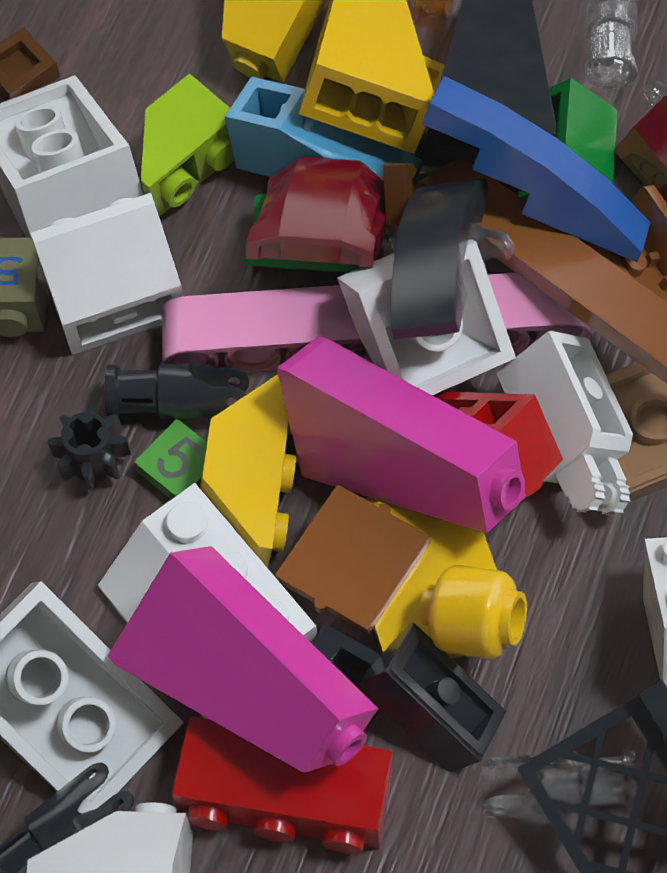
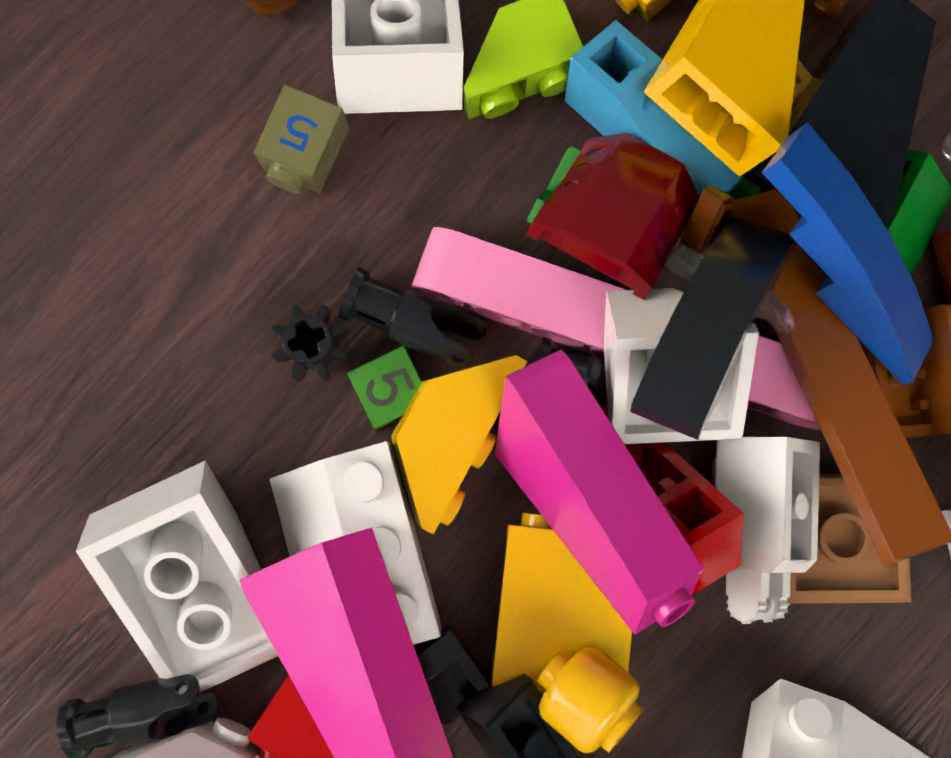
camera: 15 degrees right, 20 degrees up
(108, 271) = (393, 173): white slope -> none
(352, 559) = (502, 581): dark orange piece -> none

